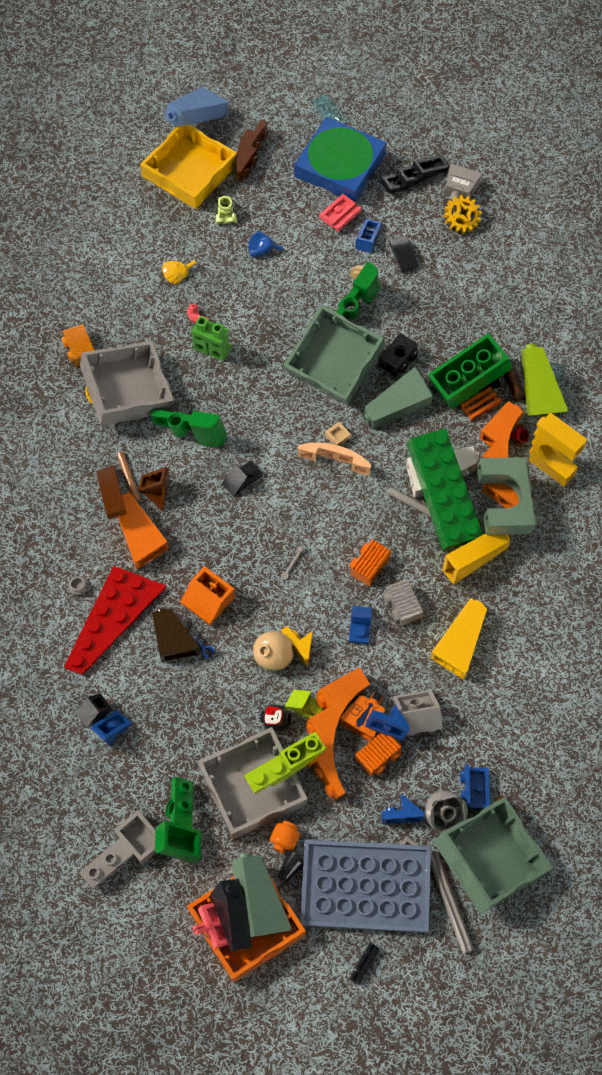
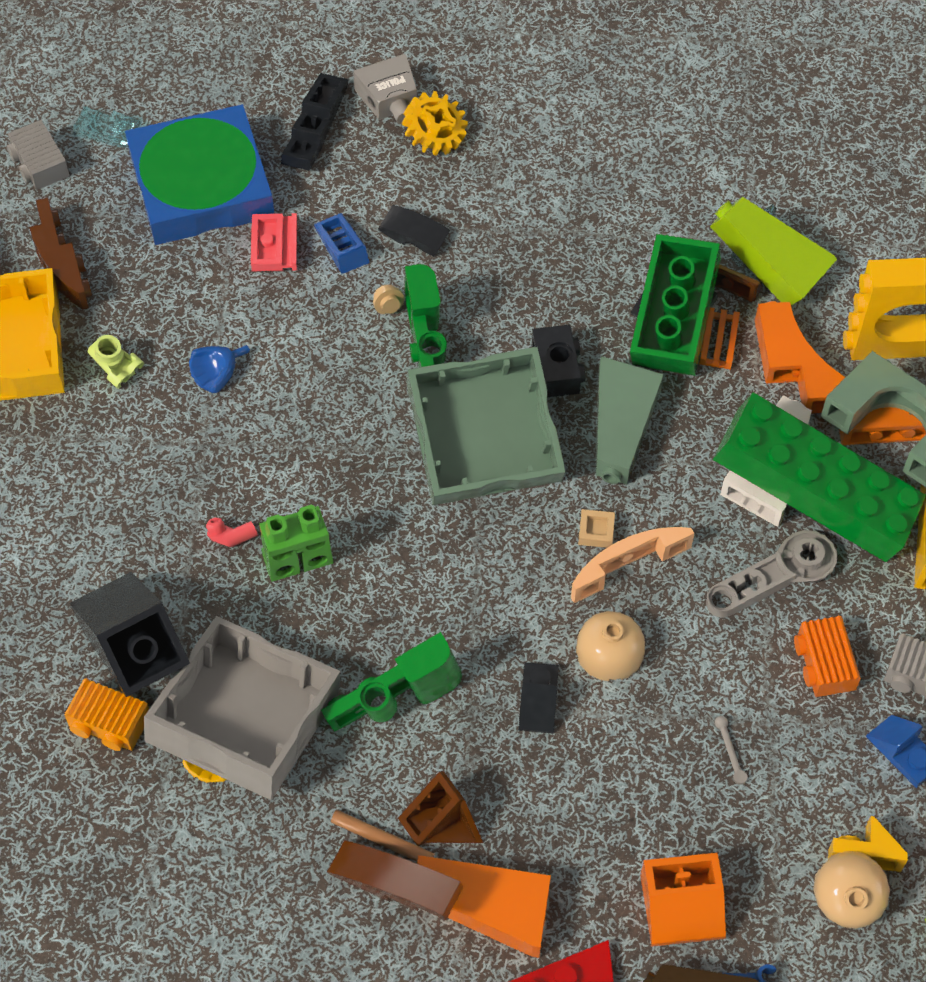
camera: 45 degrees left, 5 degrees down
(112, 319) = (130, 633): none -> black slope
(176, 271) = (132, 496): yellow piece -> none
(285, 101) = (38, 155): none -> light grey brick
(291, 483) = (610, 646): none -> tan cylinder
(390, 514) = (777, 572): none -> light grey beam
(406, 499) = (776, 535): light grey bar -> none
(520, 435) = (813, 334): dark red plate -> none

